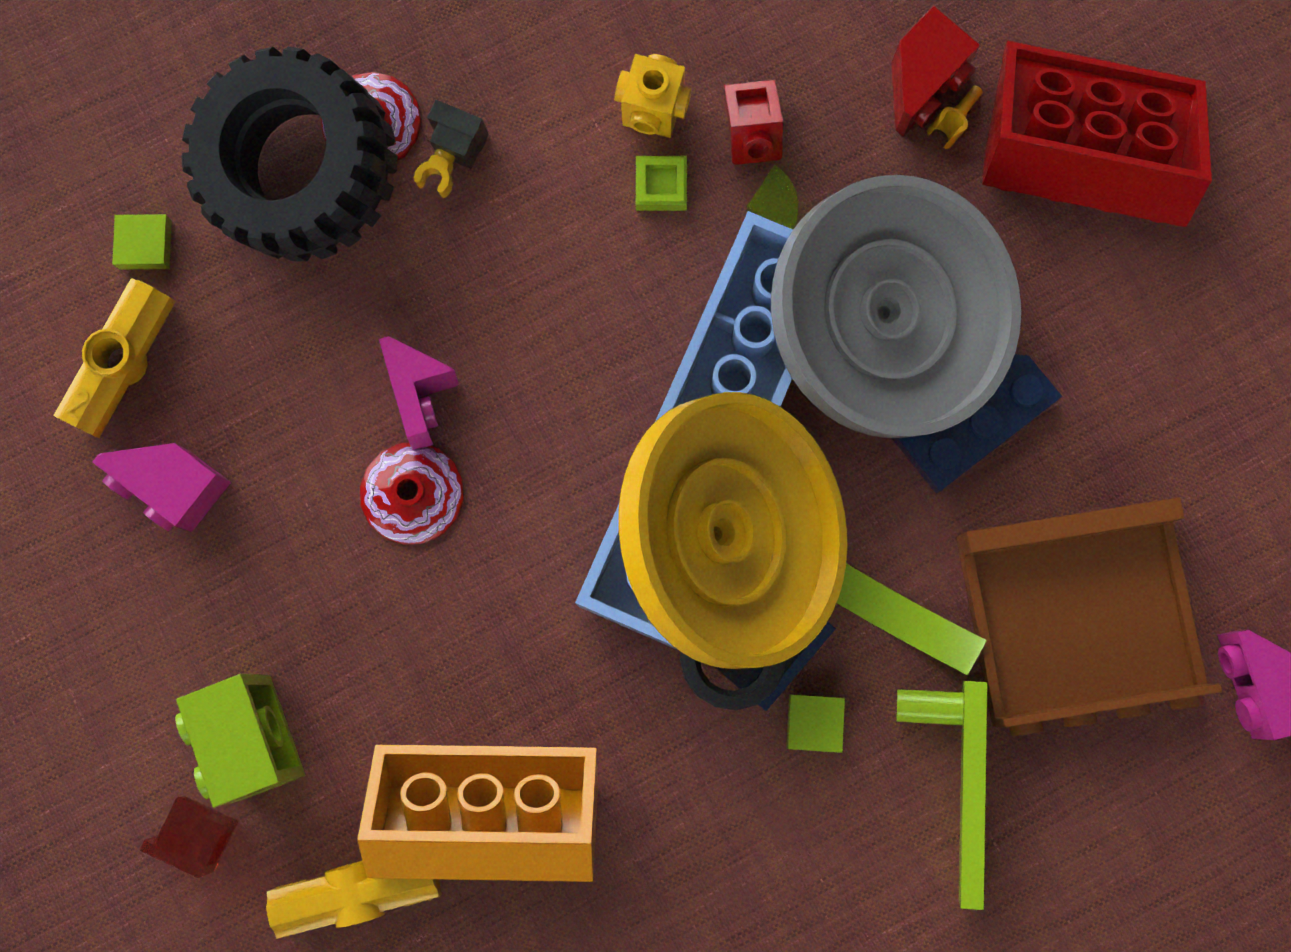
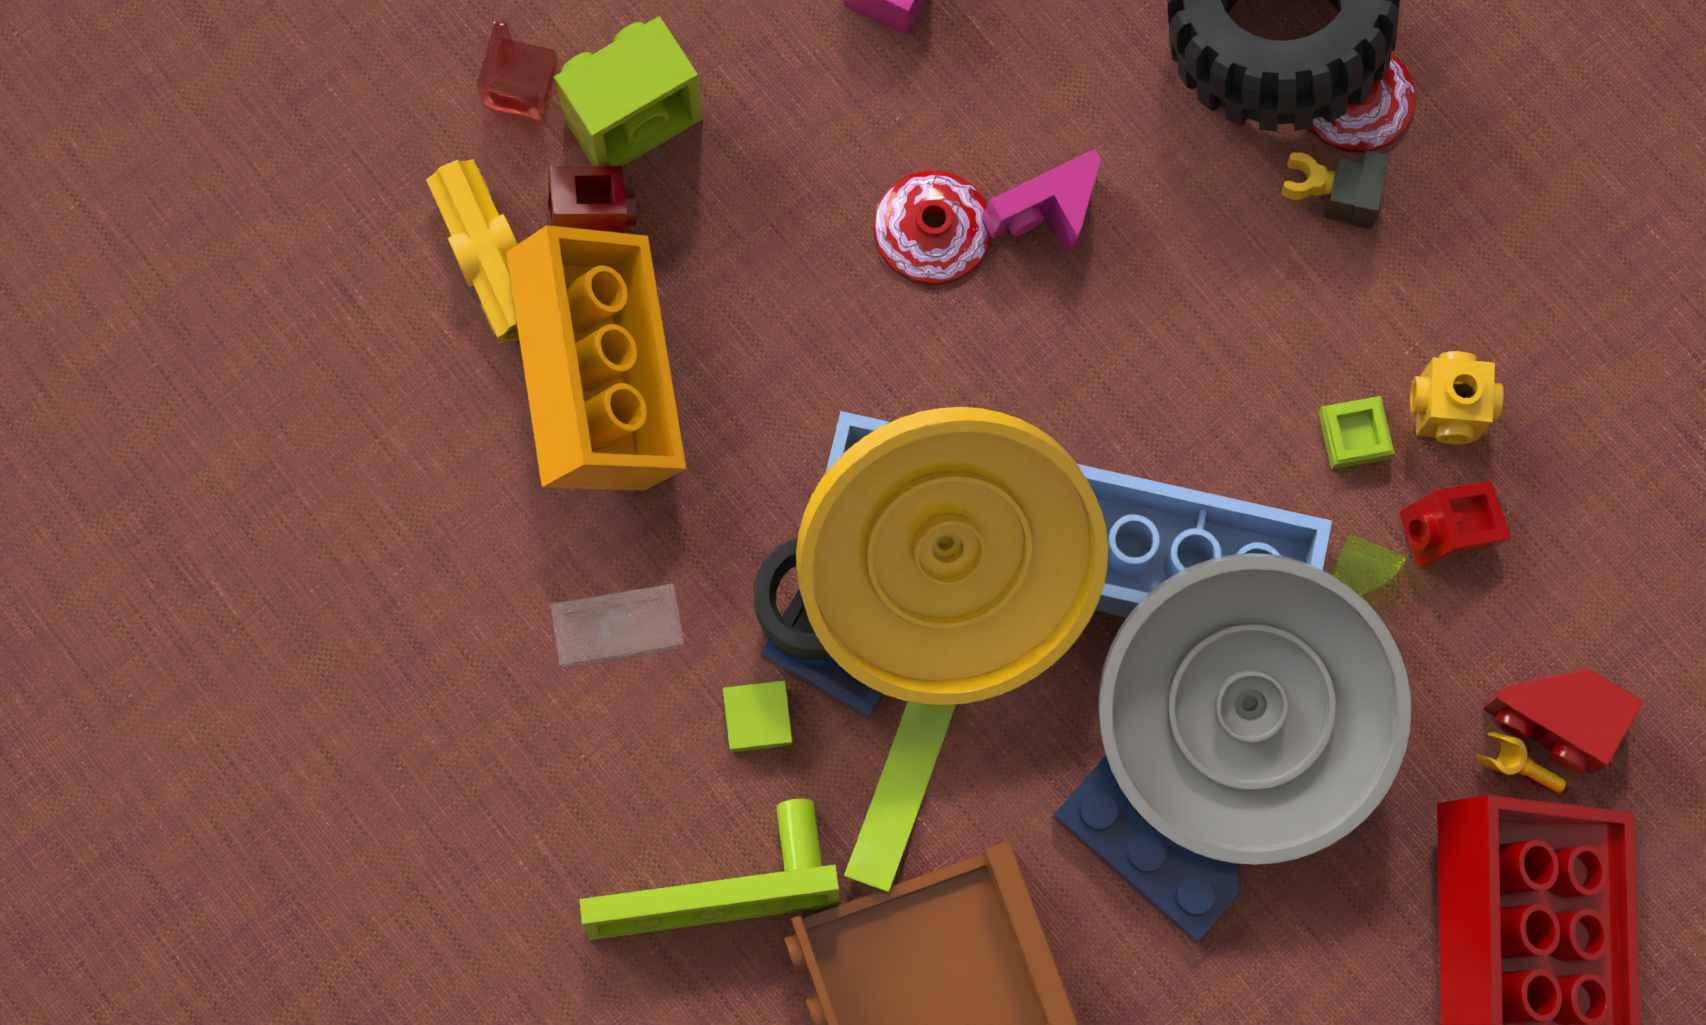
camera: 75 degrees right, 5 degrees down
(331, 791) = (590, 198): none -> dark red brick
(718, 832) = (617, 626): none -> clear plate

